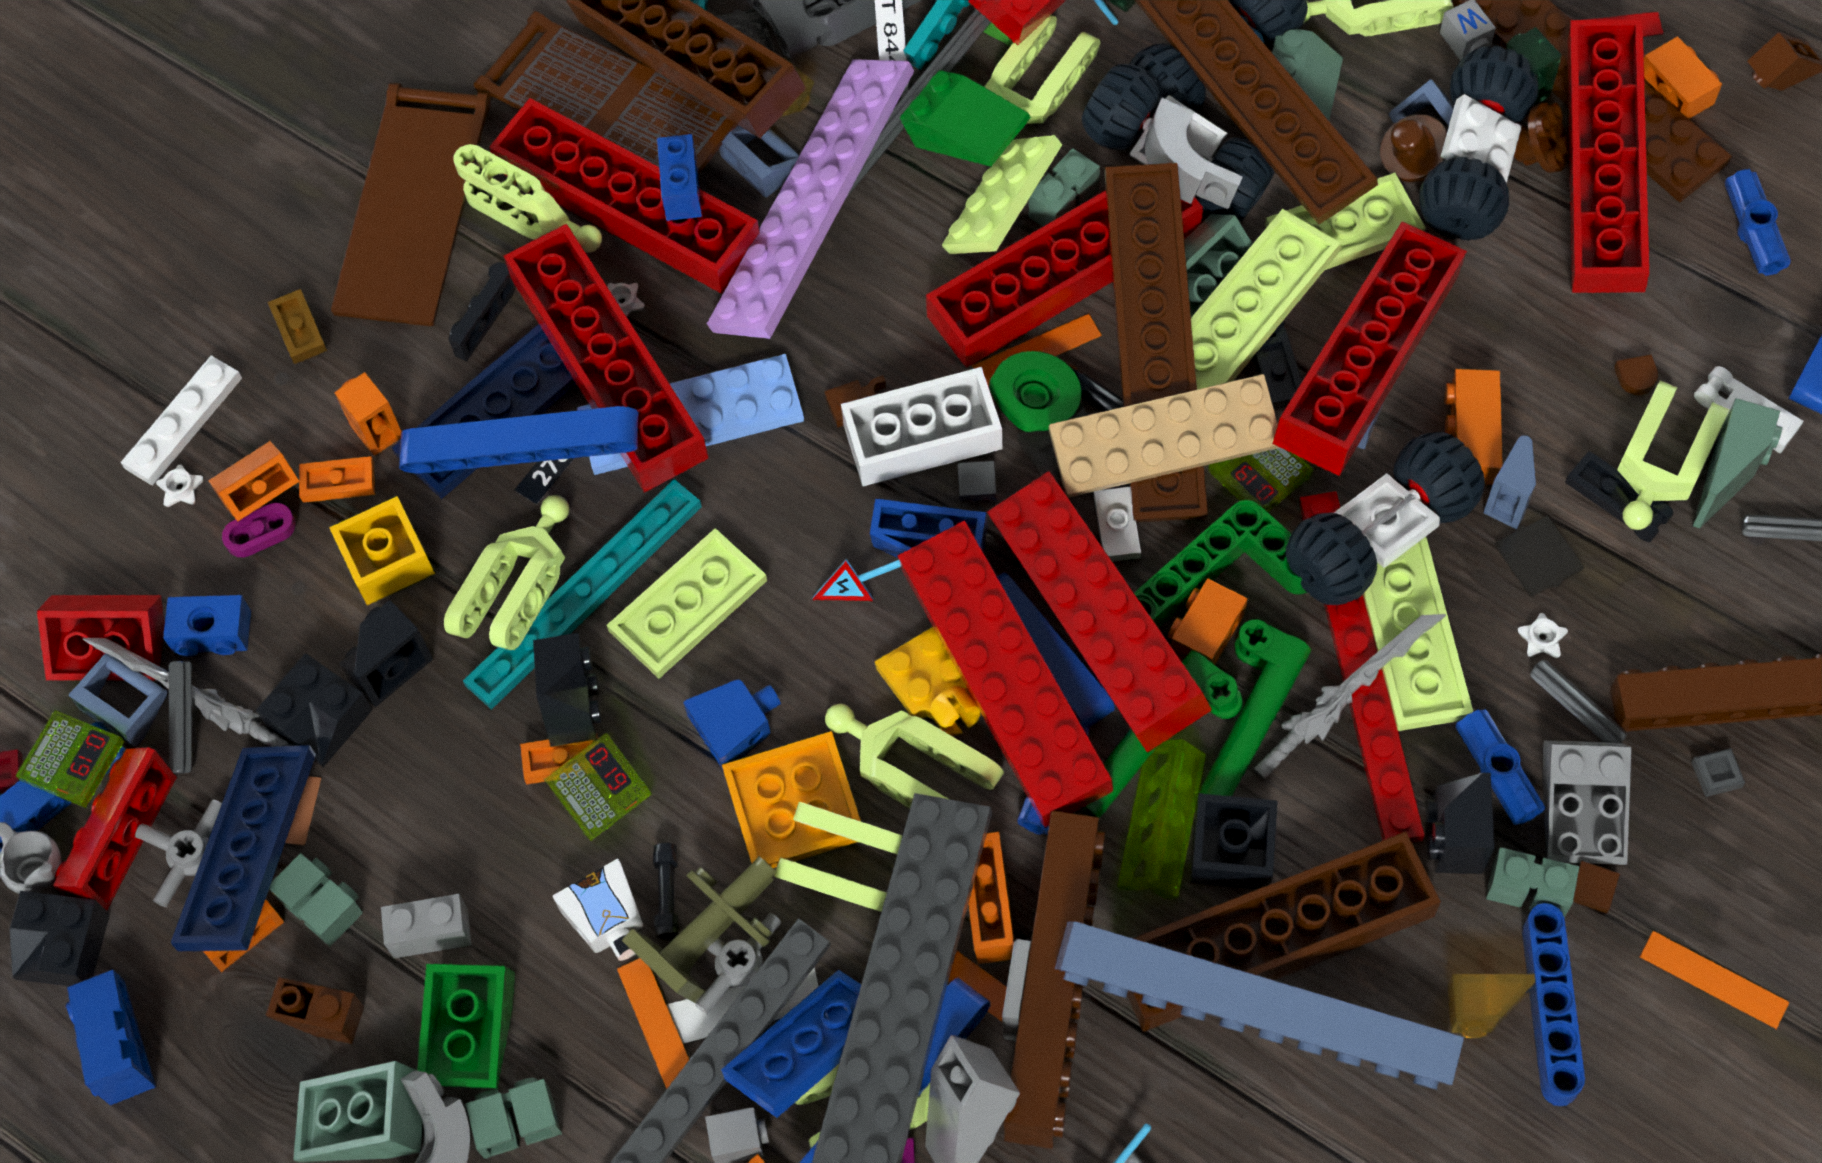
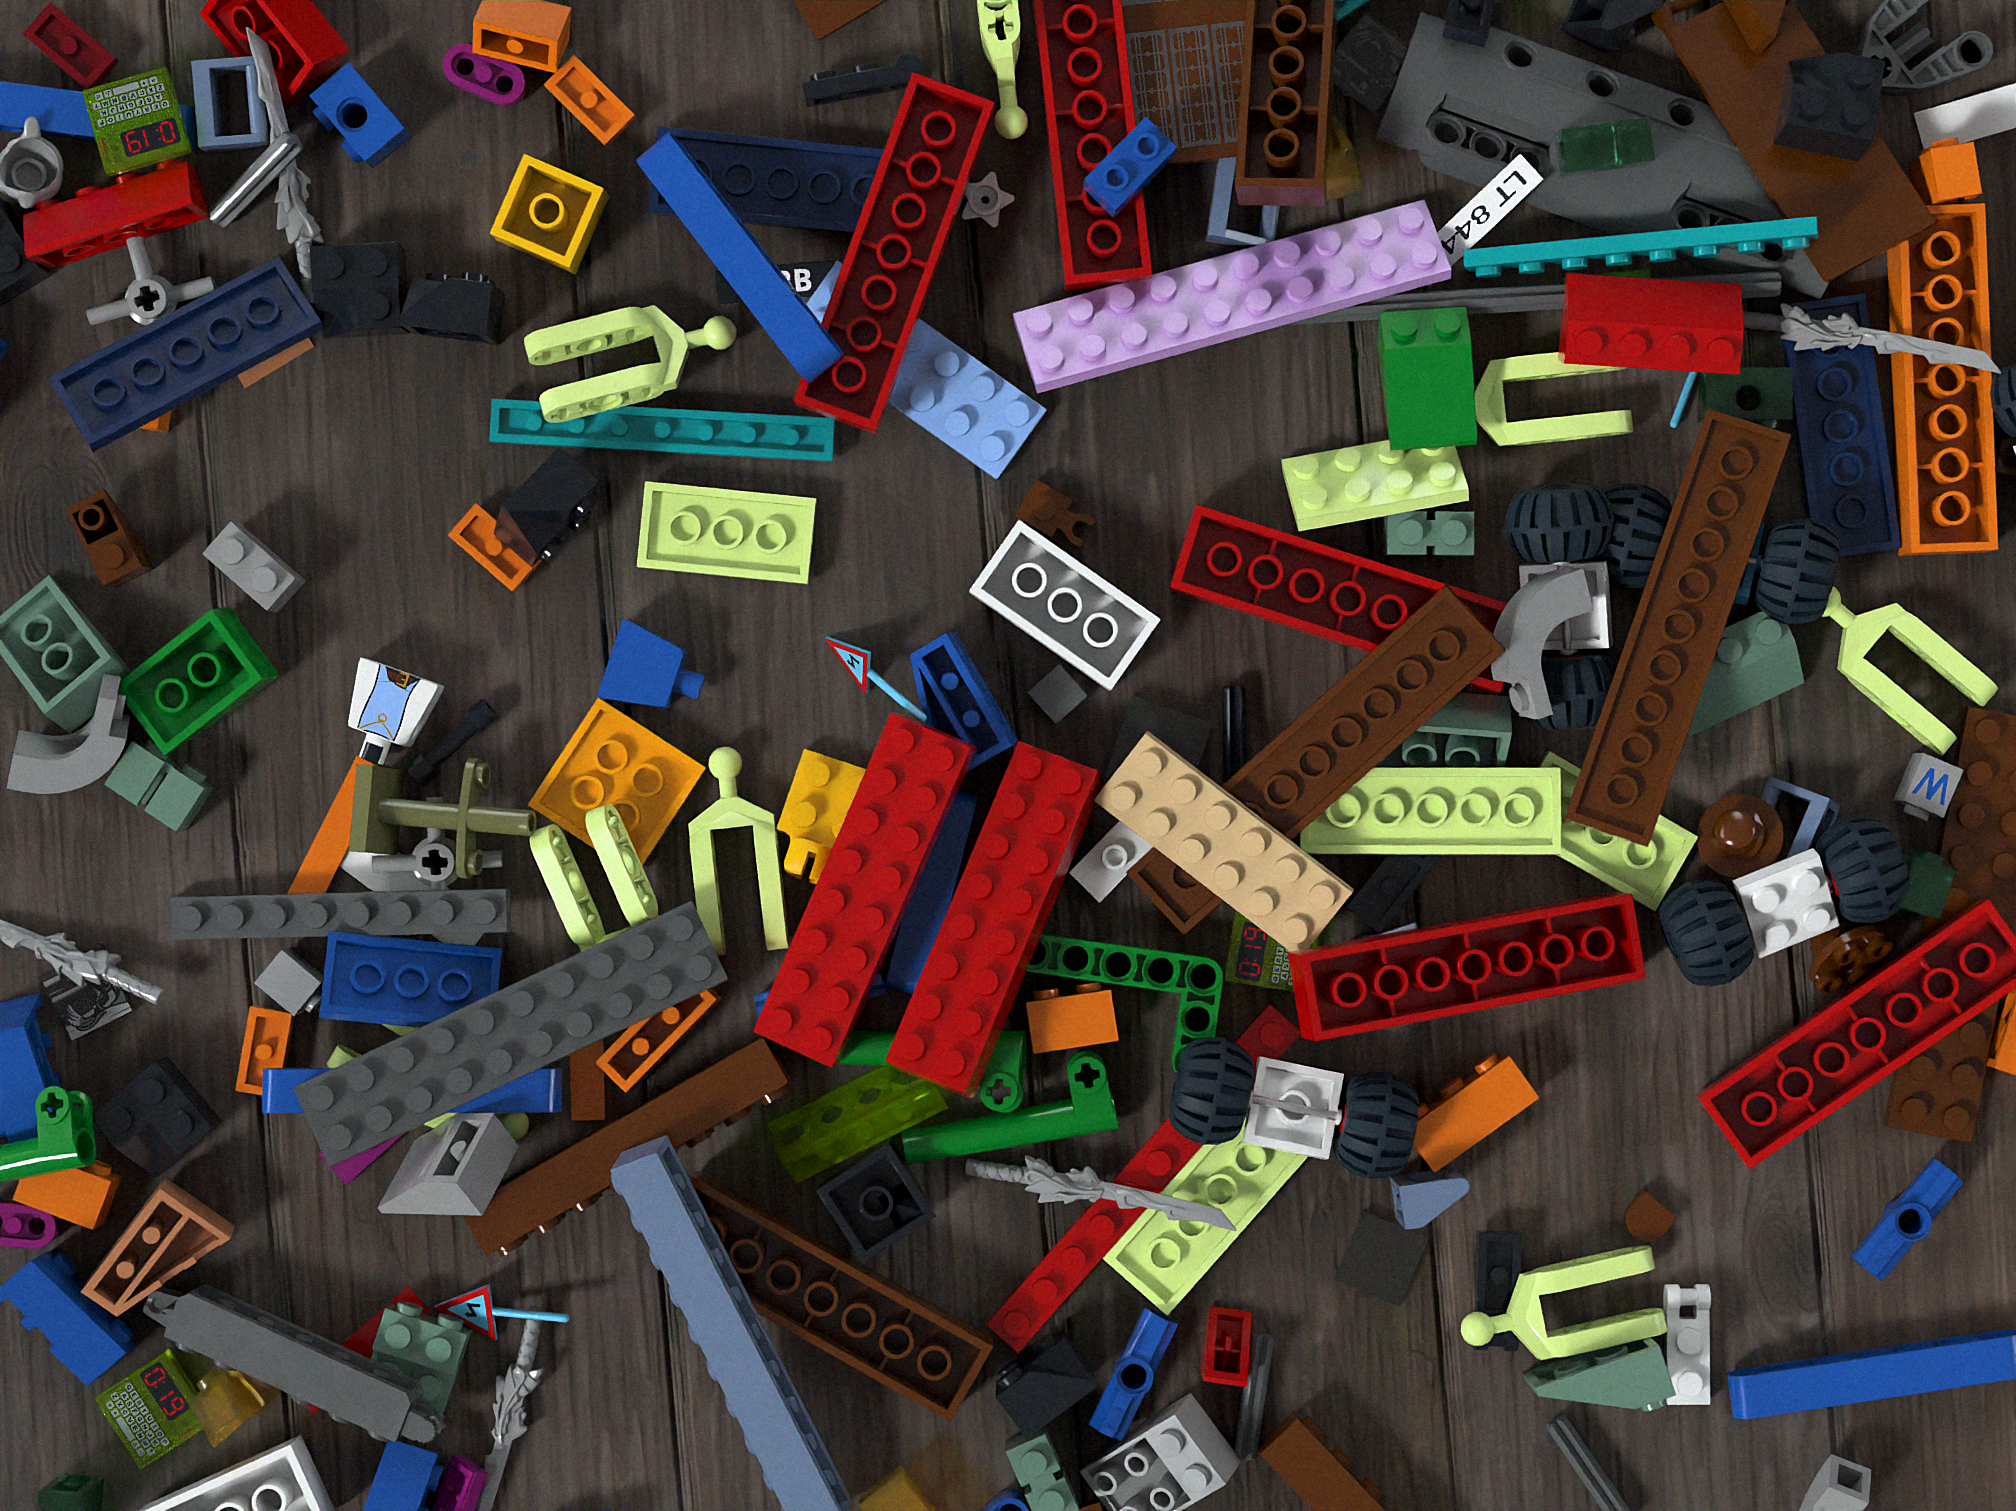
camera: 45 degrees right, 25 degrees up
(315, 899) = (201, 470): sand green piece -> none
(368, 413) = (667, 77): orange brick -> none
(597, 786) = (491, 606): tile -> none
(1015, 989) = (592, 1122): light grey tile -> none
(1035, 390) = (1186, 682): green hat -> none
(1052, 342) = (1241, 638): orange sticker -> none
(1528, 693) = (1226, 1346): none -> red slope
(1545, 627) = (1309, 1326): white plate -> none

